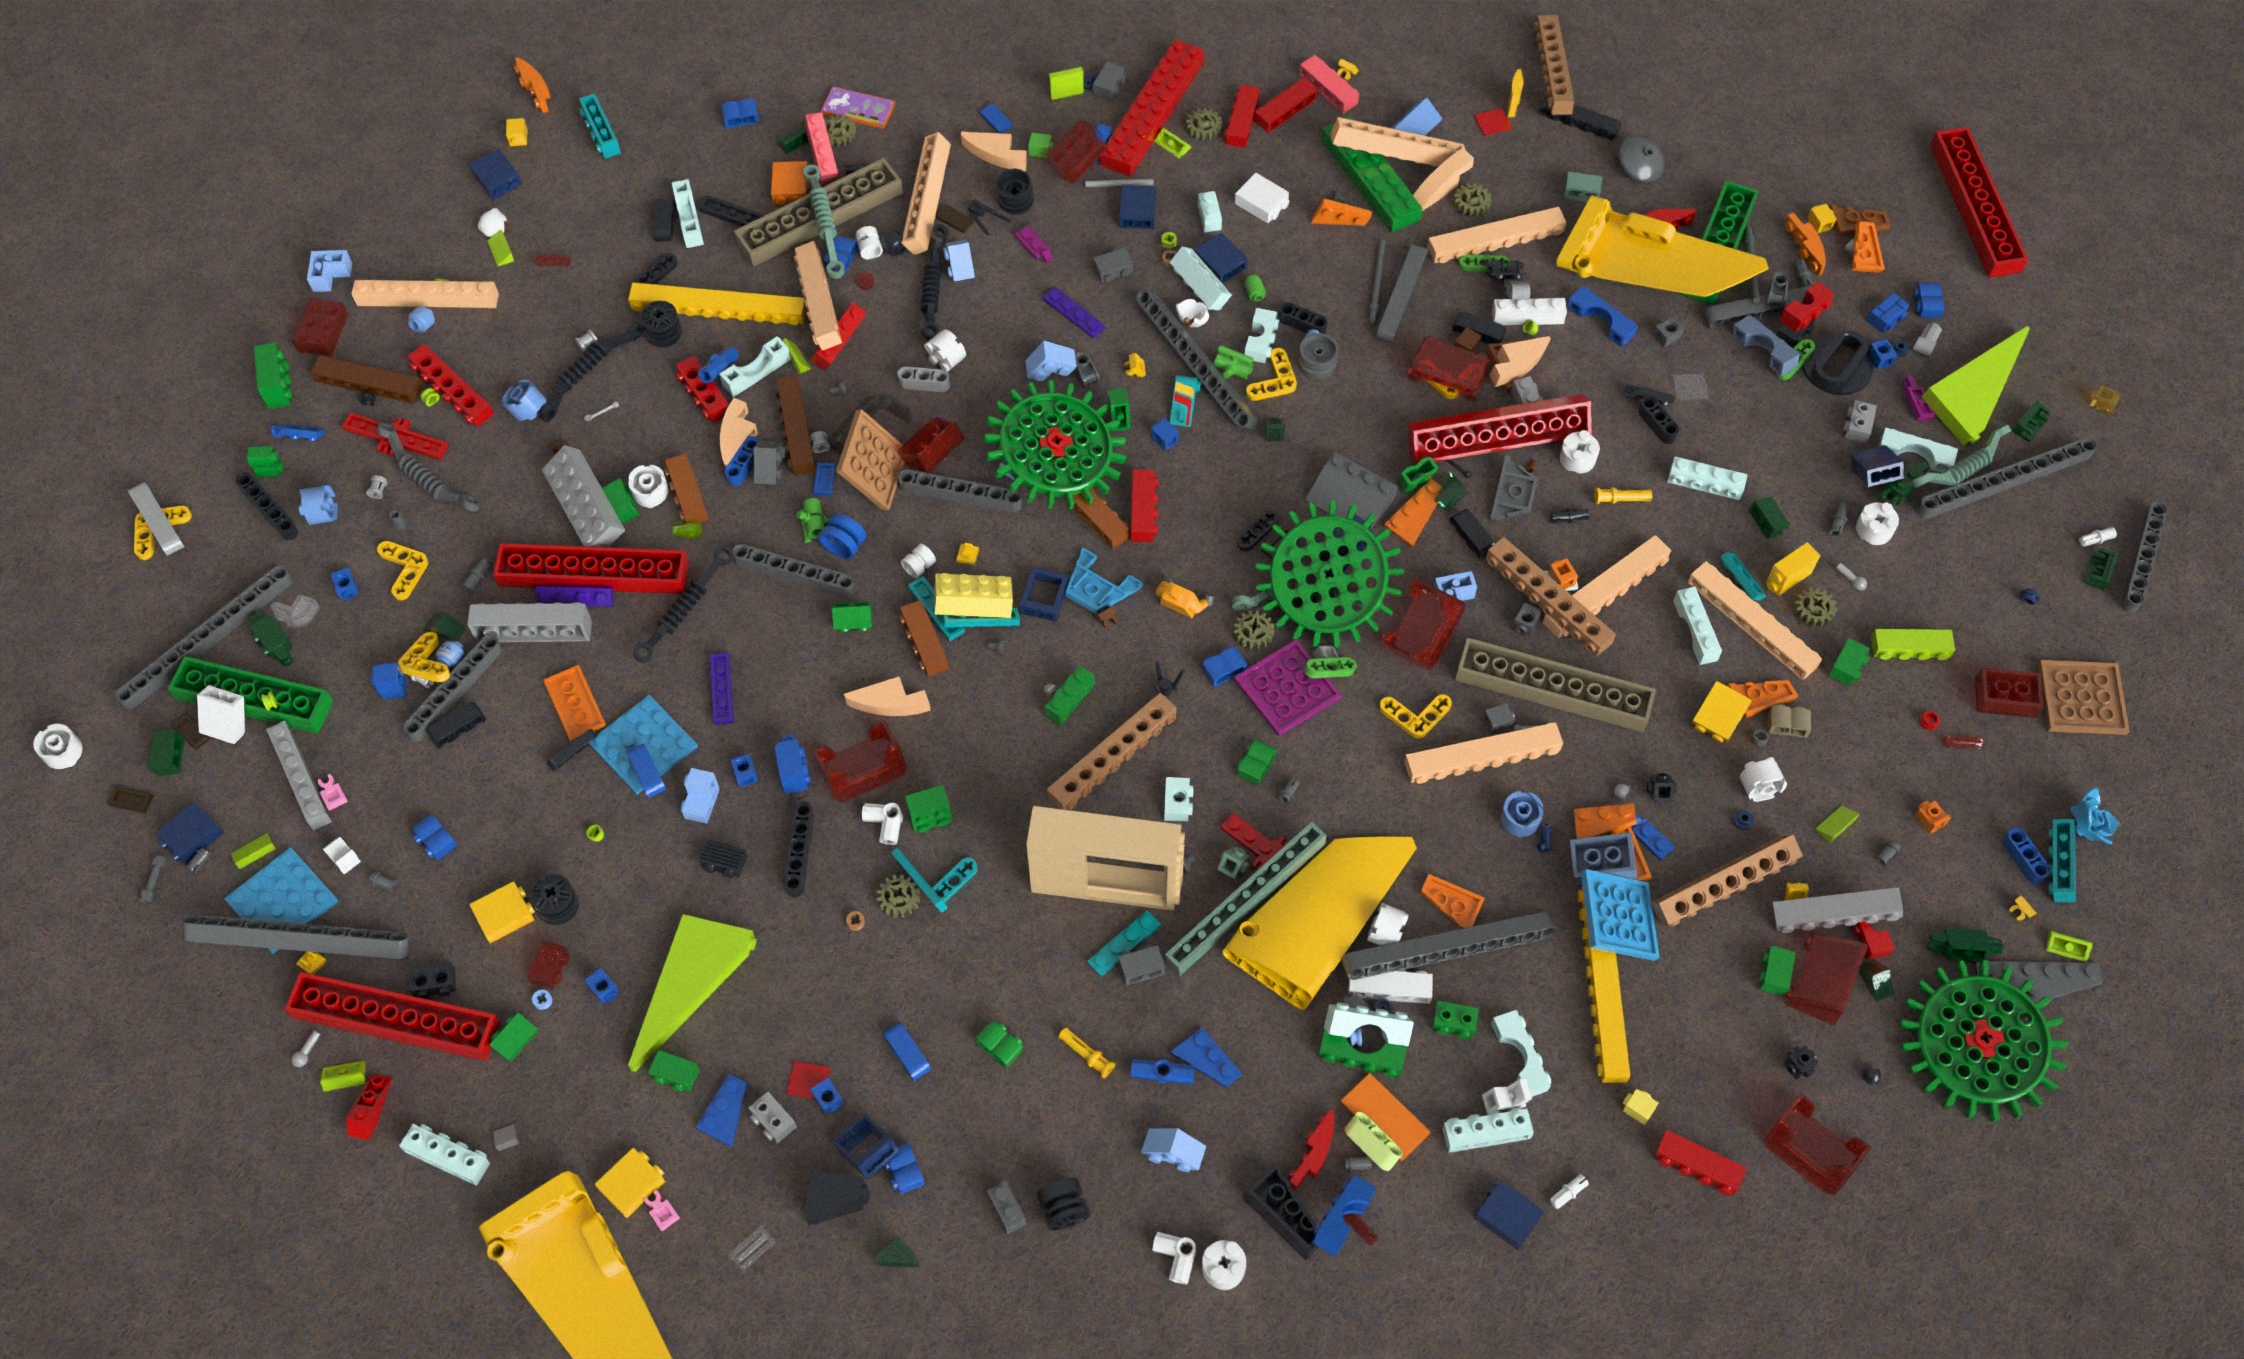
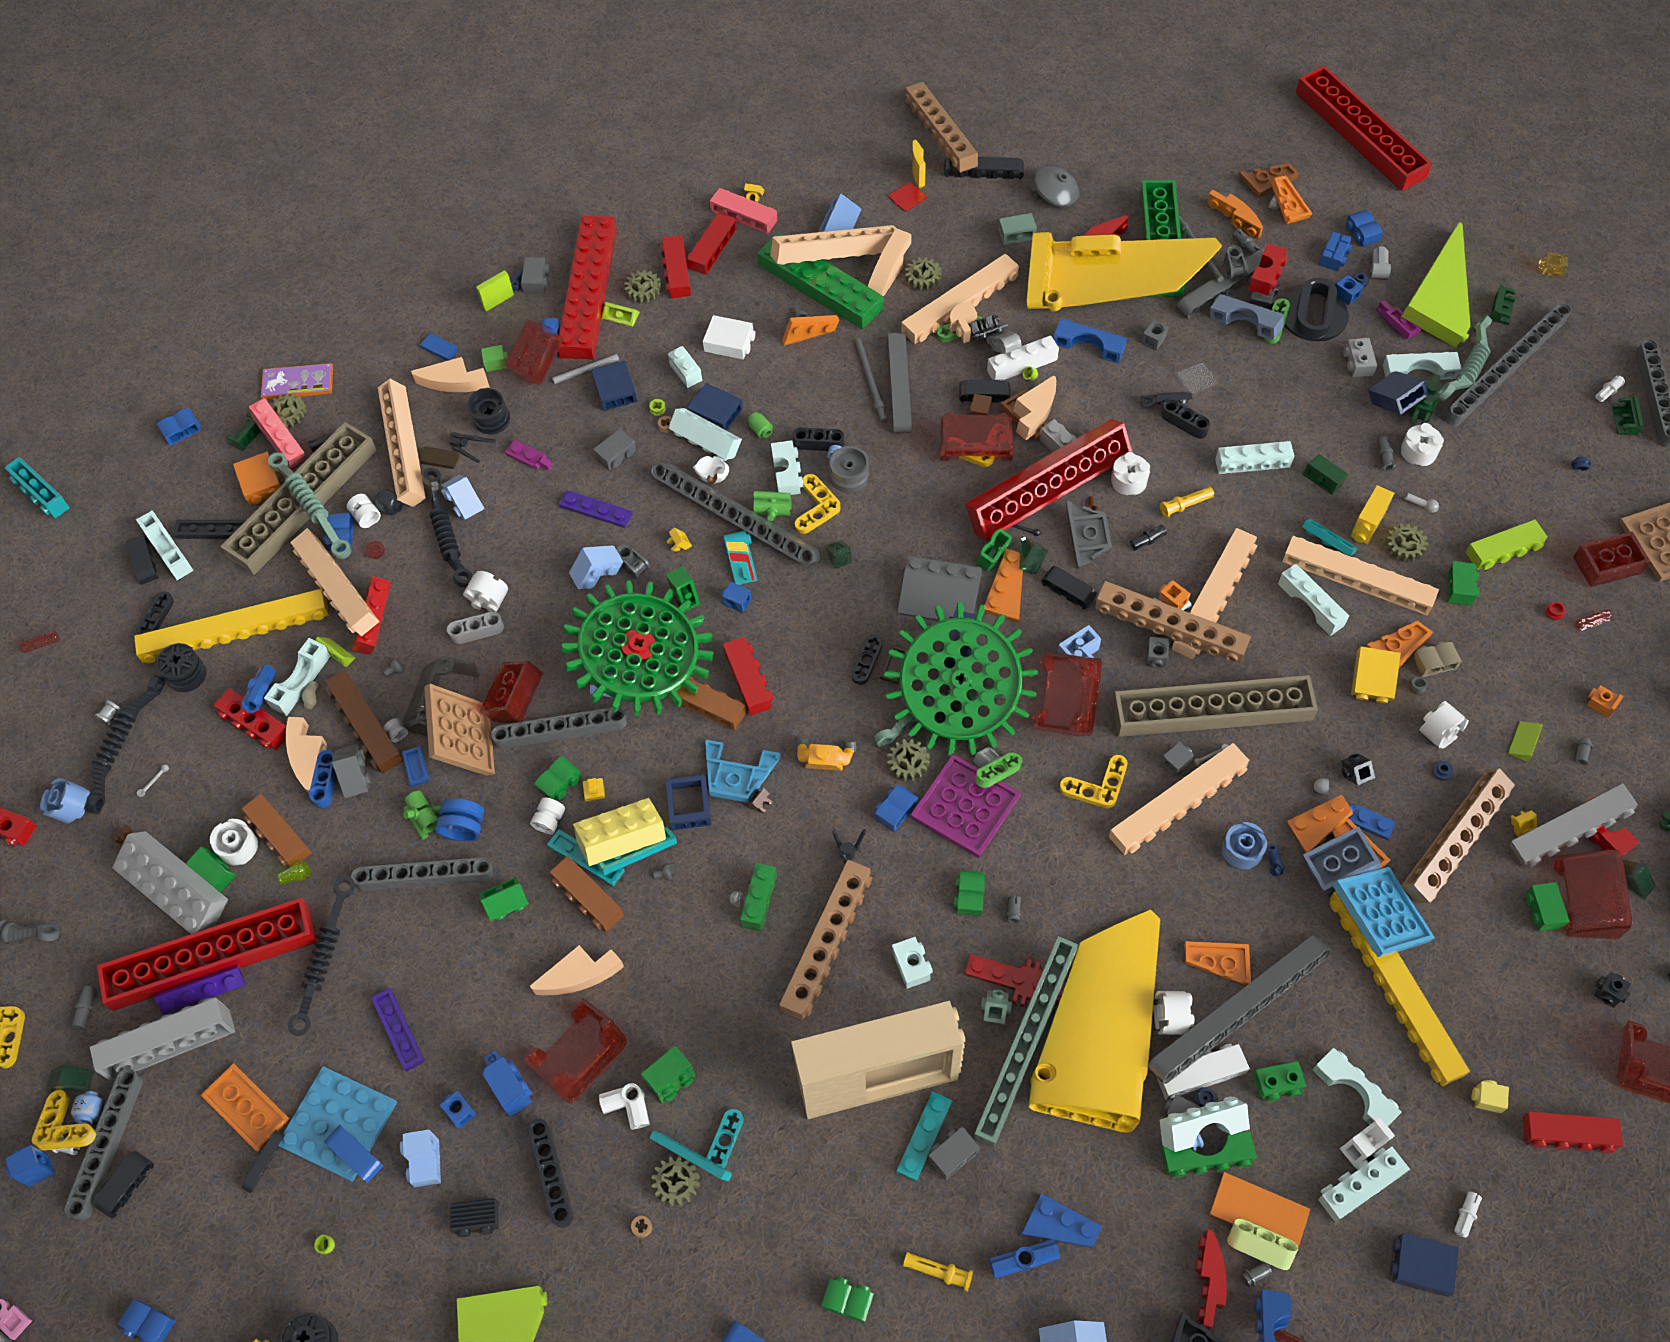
camera: 20 degrees left, 0 degrees up
(758, 386) = (309, 695): none -> dark tan arm
(940, 533) = (558, 779): none -> green brick
(1485, 252) = (959, 319): none -> light nougat brick
(1821, 218) = (1237, 186): yellow brick -> none

